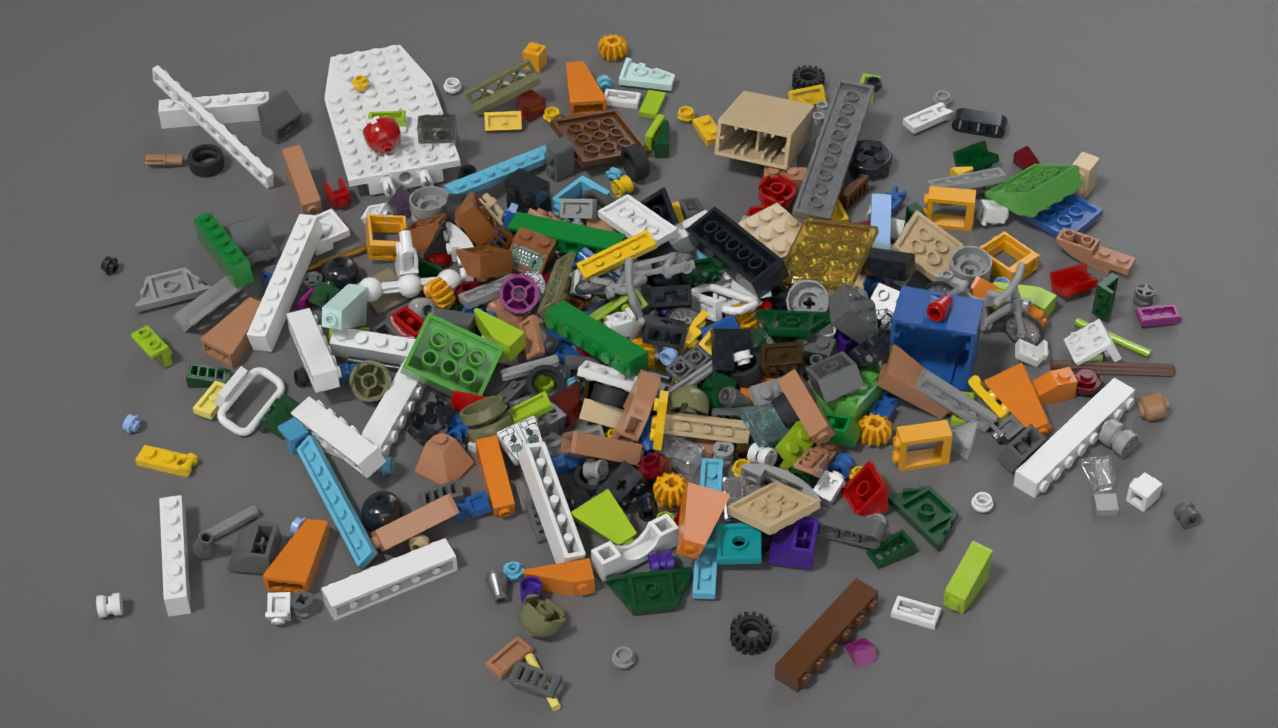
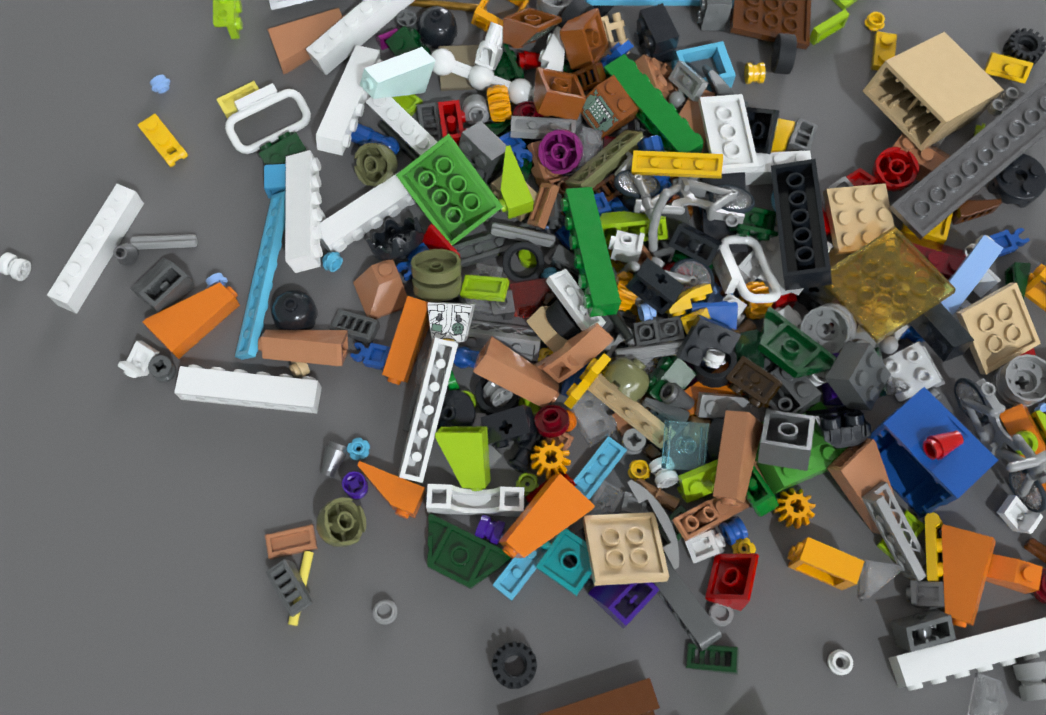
camera: 30 degrees right, 25 degrees up
(200, 375) = (245, 60): dark green slope -> none
(613, 174) = (756, 55): medium azure plate -> none
(662, 142) = (828, 43): dark green slope -> none
(885, 407) = (820, 488): blue plate -> none
(925, 512) = (776, 637): dark green wing -> none

